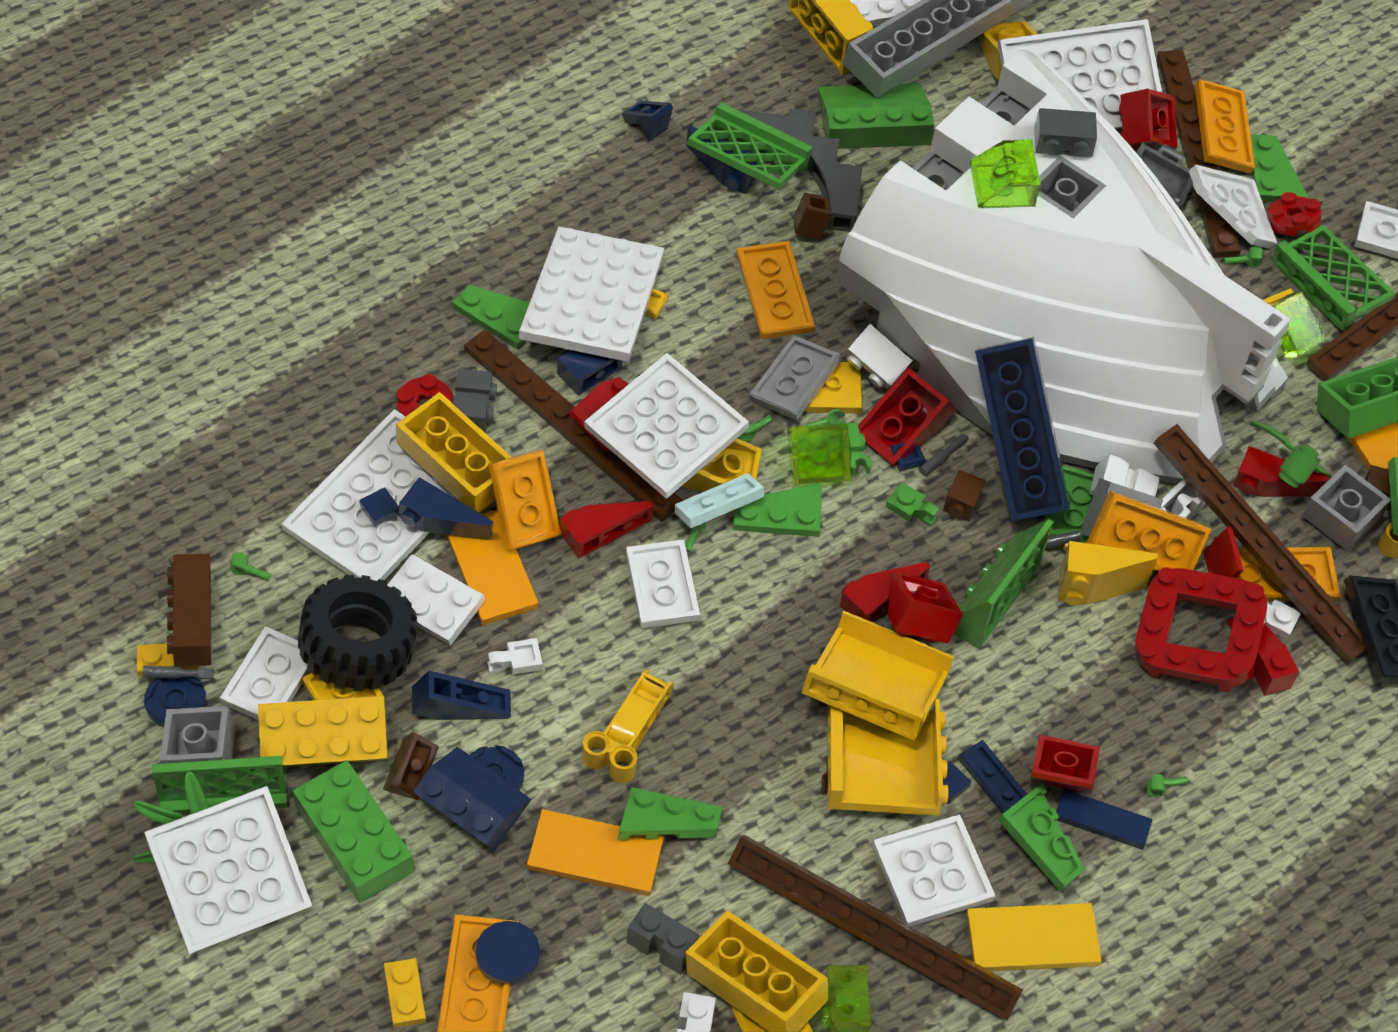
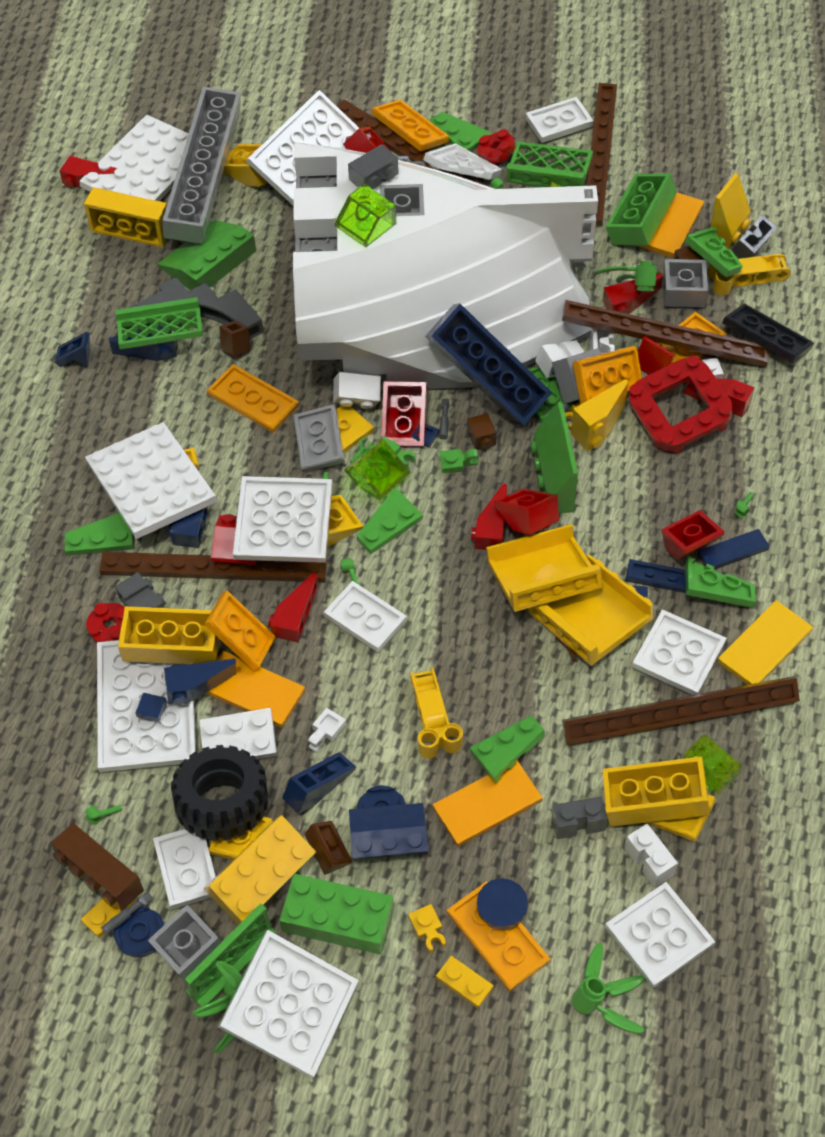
camera: 35 degrees left, 0 degrees up
(423, 912) = (426, 925): none -> yellow plate
(719, 500) = (352, 541): light aqua plate -> none

